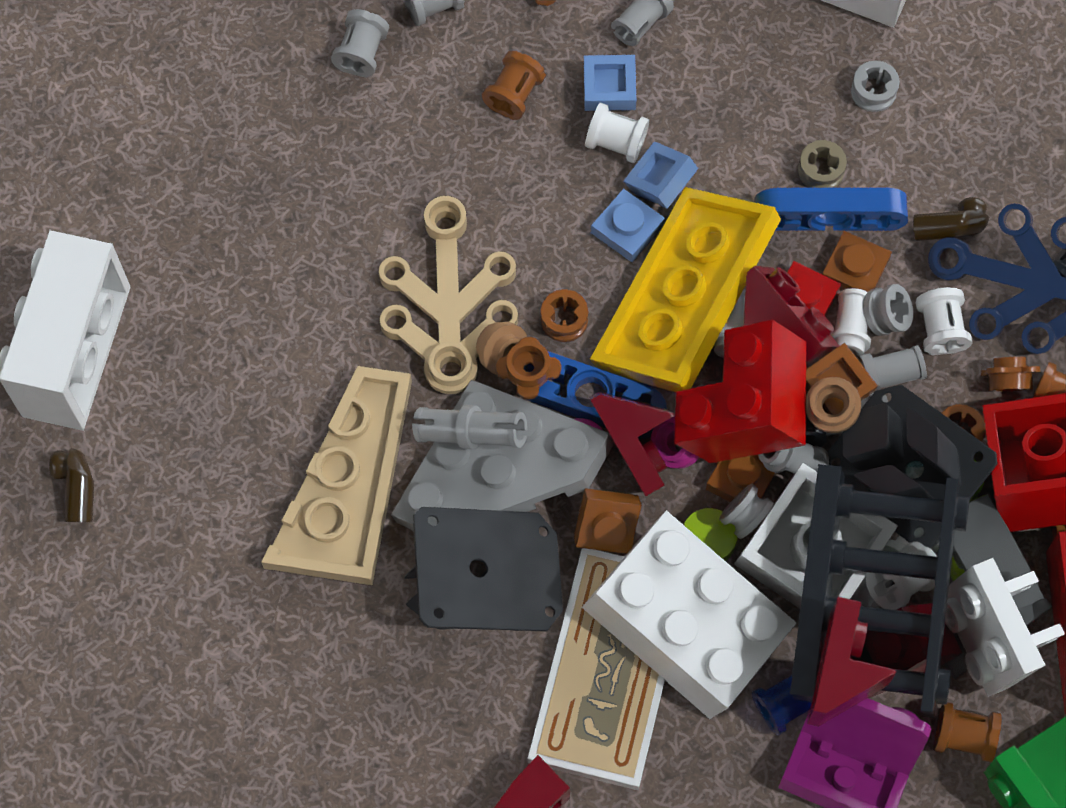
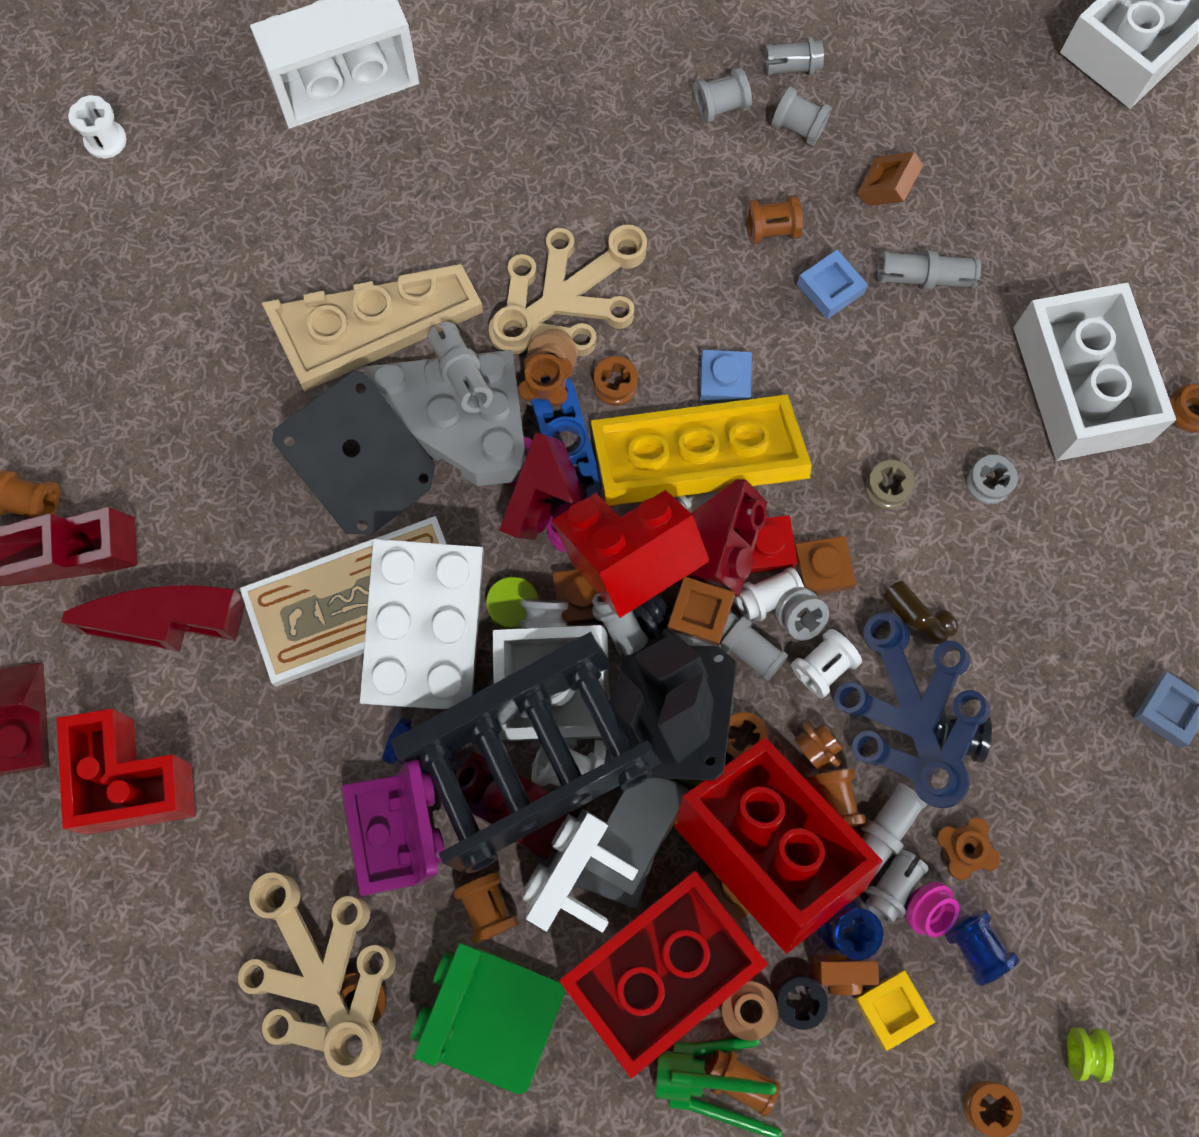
camera: 50 degrees right, 5 degrees up
(79, 484) = (249, 140): dark brown arm -> none
(607, 521) = (465, 517): dark orange plate -> none
(617, 132) = (793, 316): white bush -> none
(660, 174) = (783, 370): medium blue plate -> none
(833, 388) = (666, 602): medium nougat plate -> none
(837, 207) = (863, 521): blue beam -> none
(839, 679) = (412, 765): dark red slope -> none

